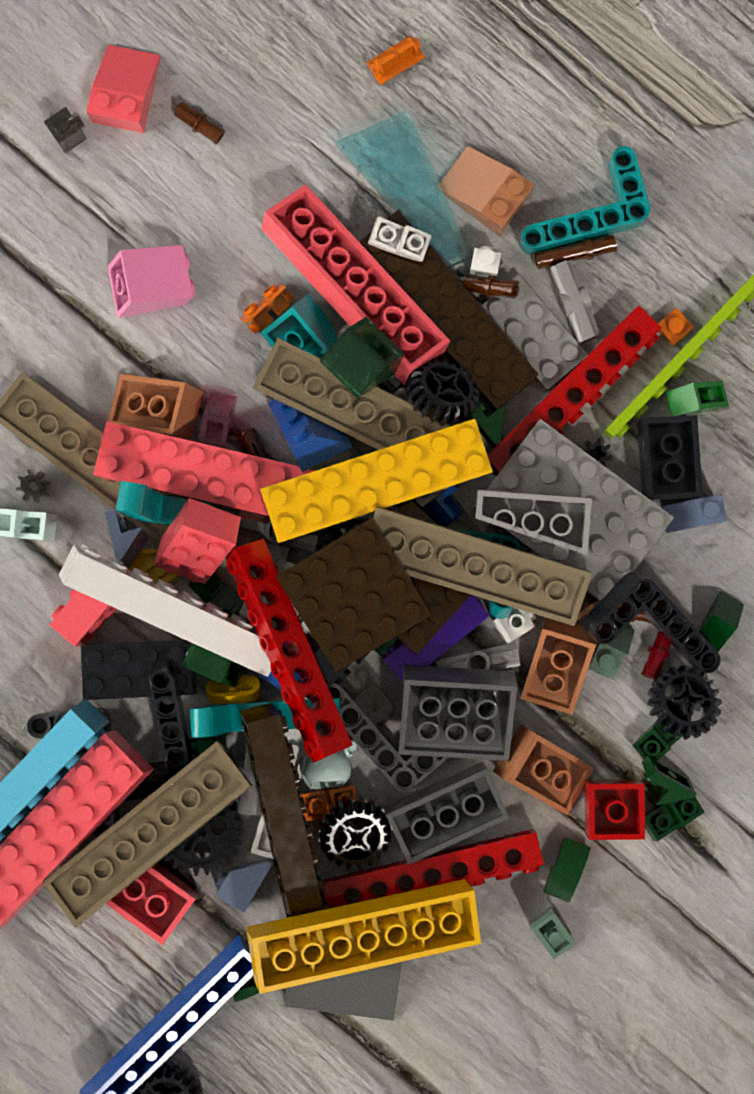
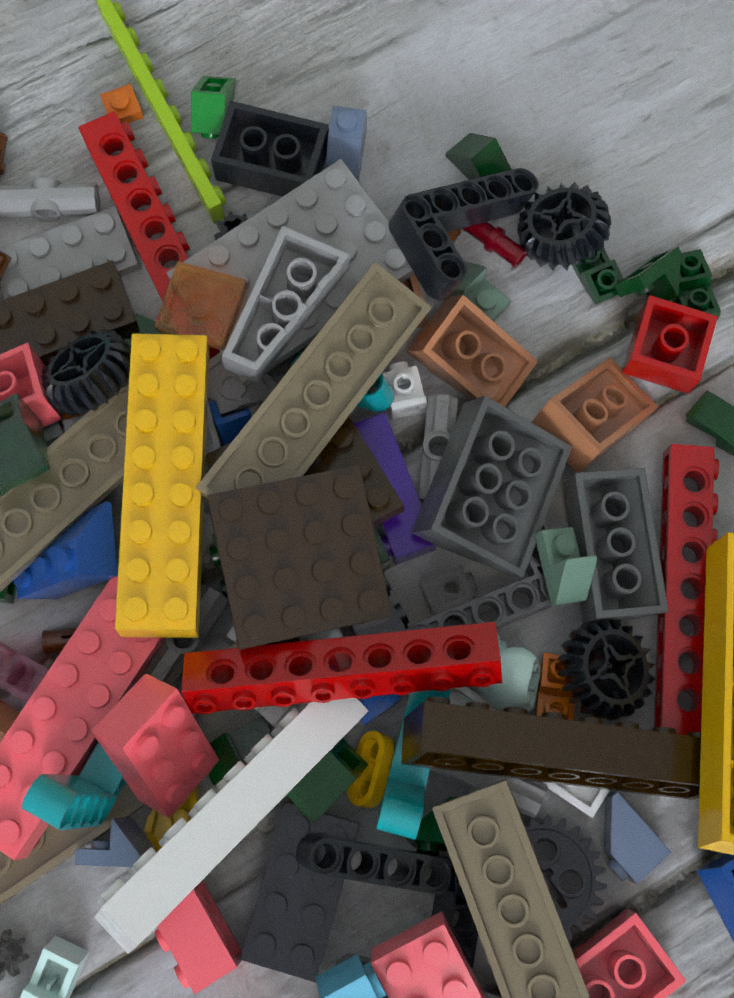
camera: 75 degrees left, 10 degrees down
(411, 783) = (565, 572): none -> sand green slope
(518, 456) = (201, 304): none -> clear orange plate

